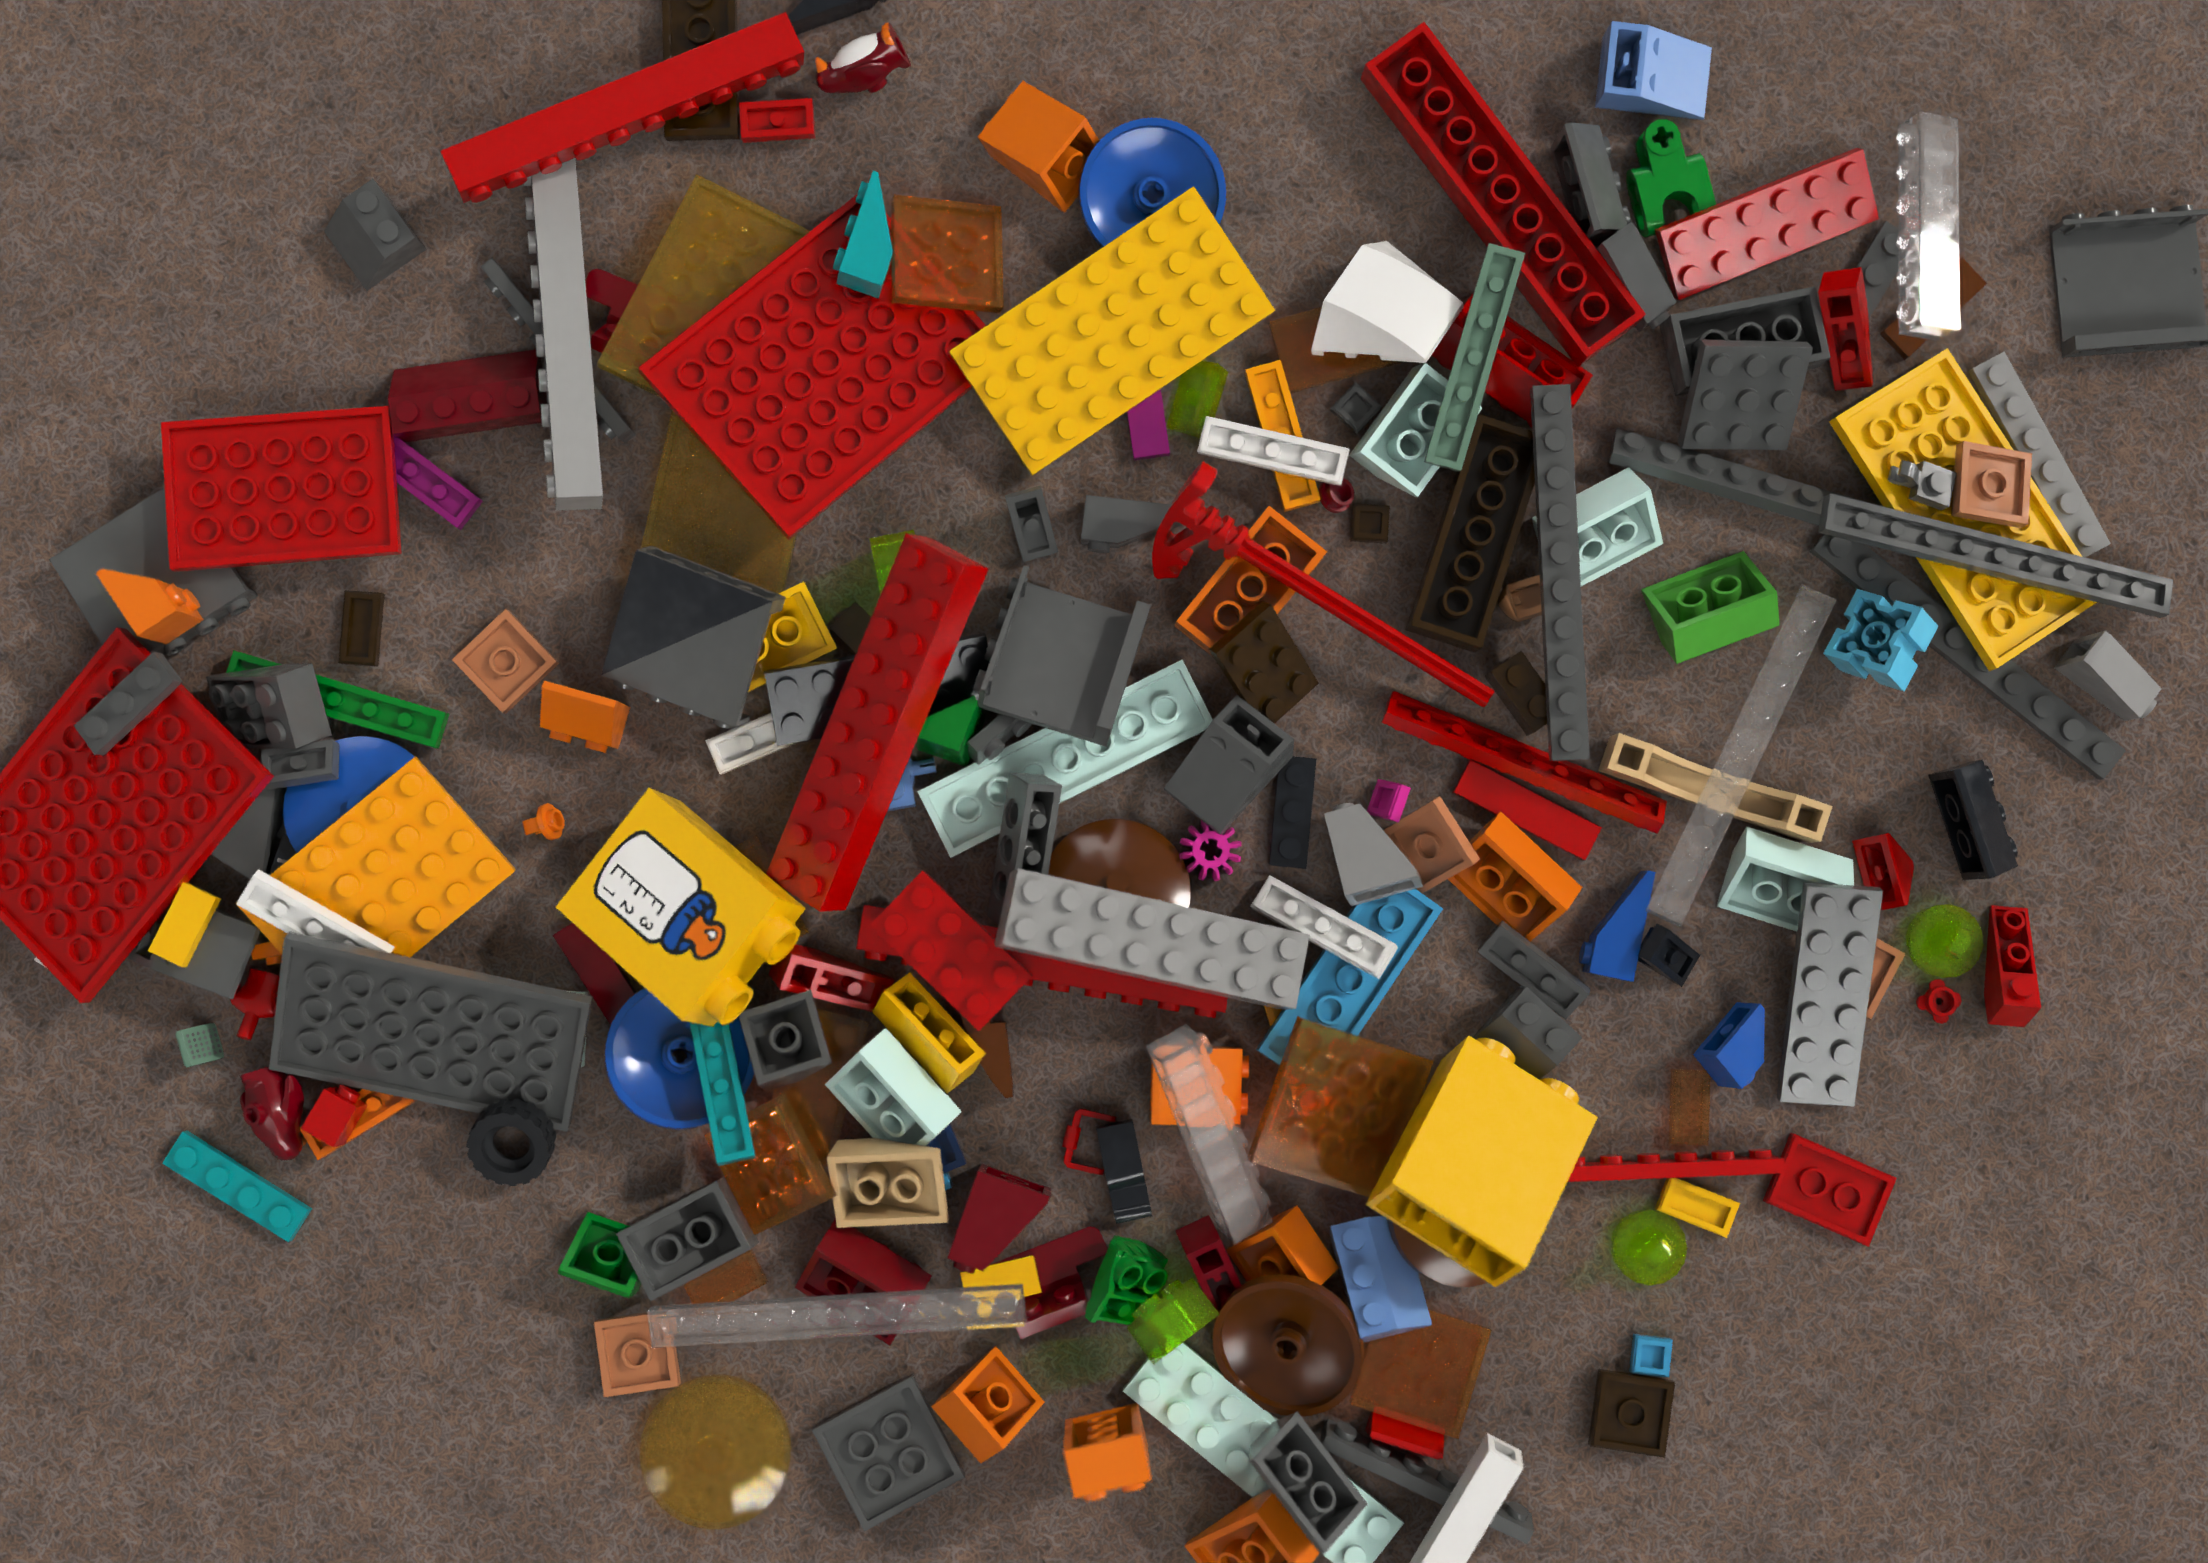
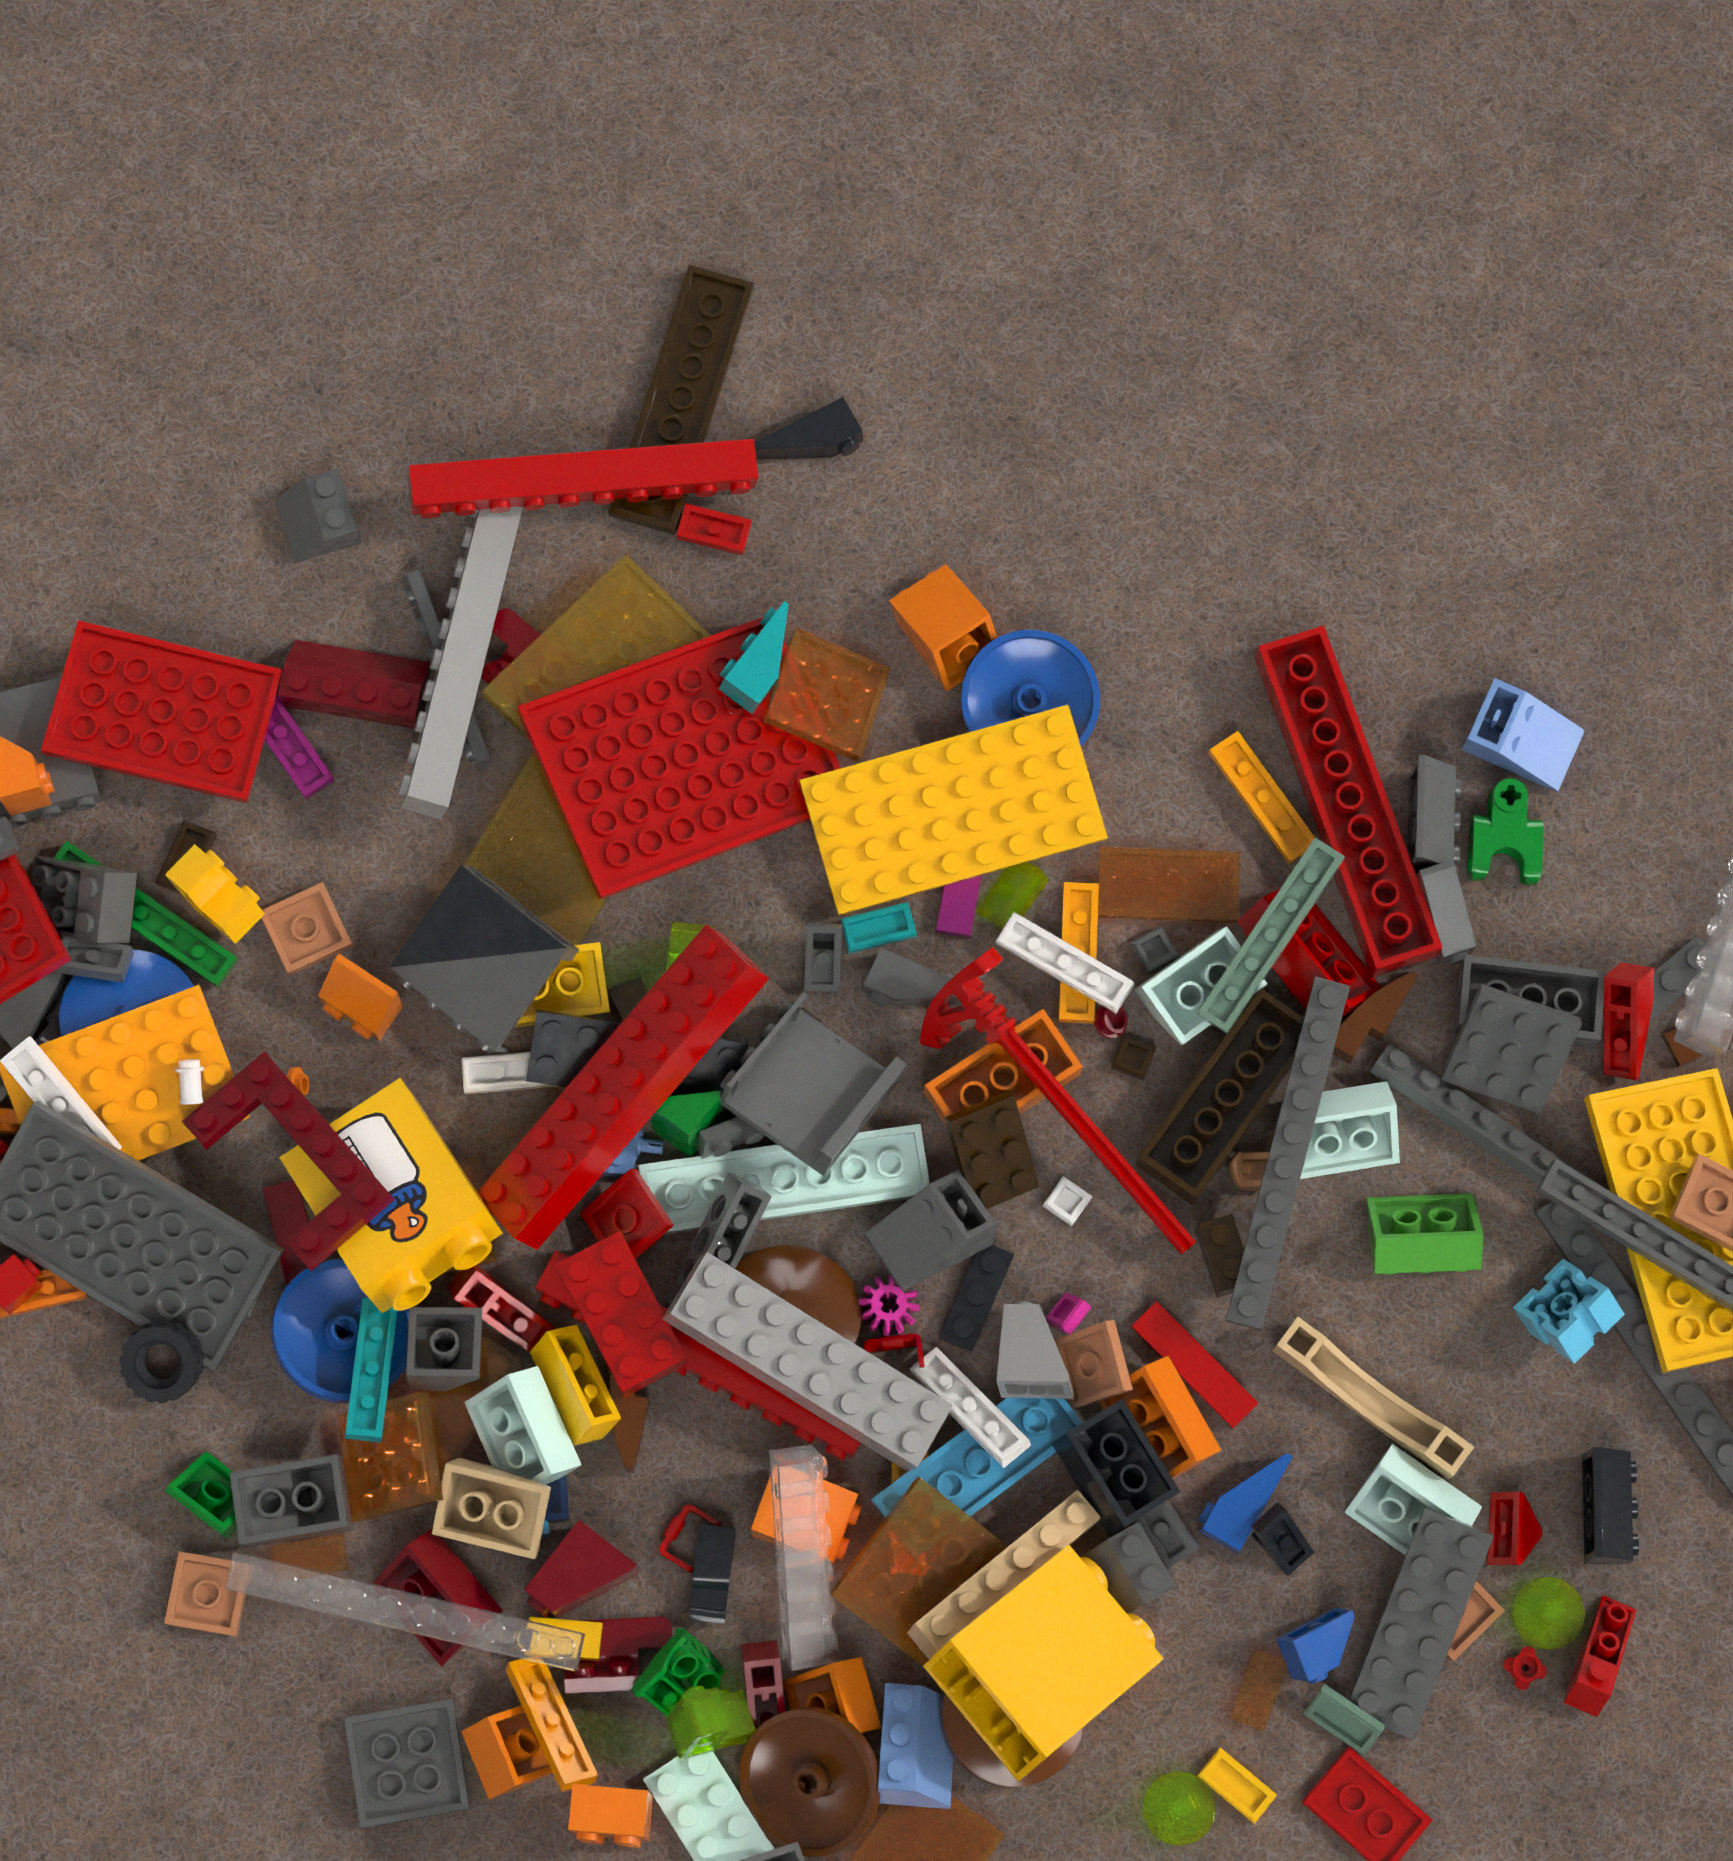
camera: 20 degrees right, 10 degrees down
(400, 656) = (213, 893): none -> yellow brick
(439, 858) = (190, 1081): none -> white pin
(647, 918) = (360, 1190): none -> dark red plate
(715, 1451) = (247, 1711): clear yellow dish -> none
(863, 63) = (808, 504): dark red animal -> none
(923, 843) = (630, 1209): none -> red plate
(1022, 1379) = (551, 1723): none -> light orange plate
(1075, 474) = (878, 928): none -> teal tile
(1228, 883) = (896, 1342): none -> red piece
(1350, 688) = (1067, 1201): none -> white tile
(1385, 309) = (1206, 866): white wedge -> none
(1410, 1090) = (1004, 1573): none -> tan arch
(1415, 219) = (1262, 797): none -> light orange plate
(1487, 941) = (1115, 1467): none -> black slope
(1524, 762) = (1205, 1319): red plate -> none
(1597, 404) = (1372, 1017): none -> reddish brown slope
(1683, 1165) = (1235, 1739): red plate -> none
(1740, 756) = (1405, 1375): clear plate -> none
(1767, 223) = (1584, 903): plate -> none
(1782, 1110) = (1344, 1719): none -> sand green tile
(1928, 482) = (1655, 1181): dark grey plate -> none

